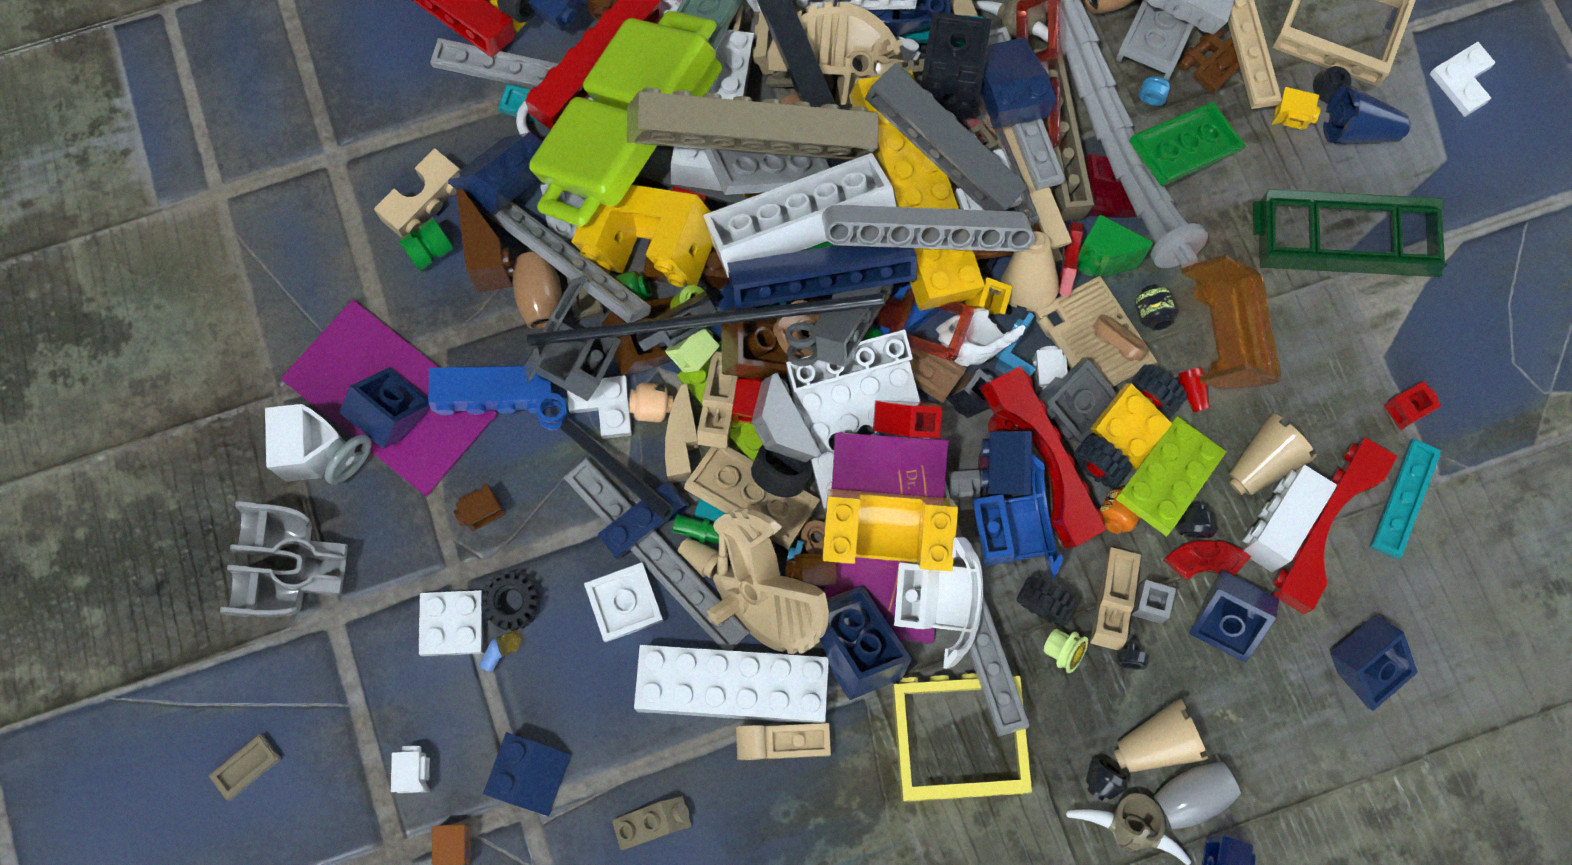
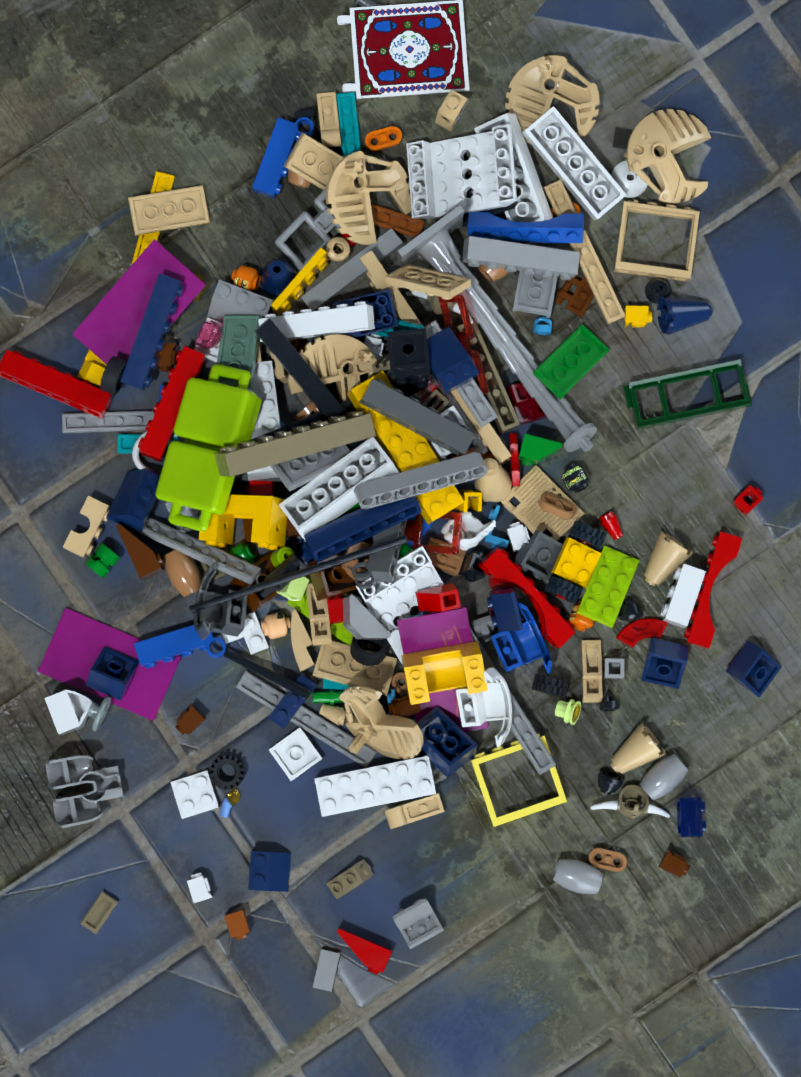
camera: 15 degrees left, 10 degrees up
(1239, 323) = (632, 476): clear orange windscreen -> none
(1405, 499) = (755, 560): teal tile -> none
(1458, 77) = (738, 261): white plate -> none

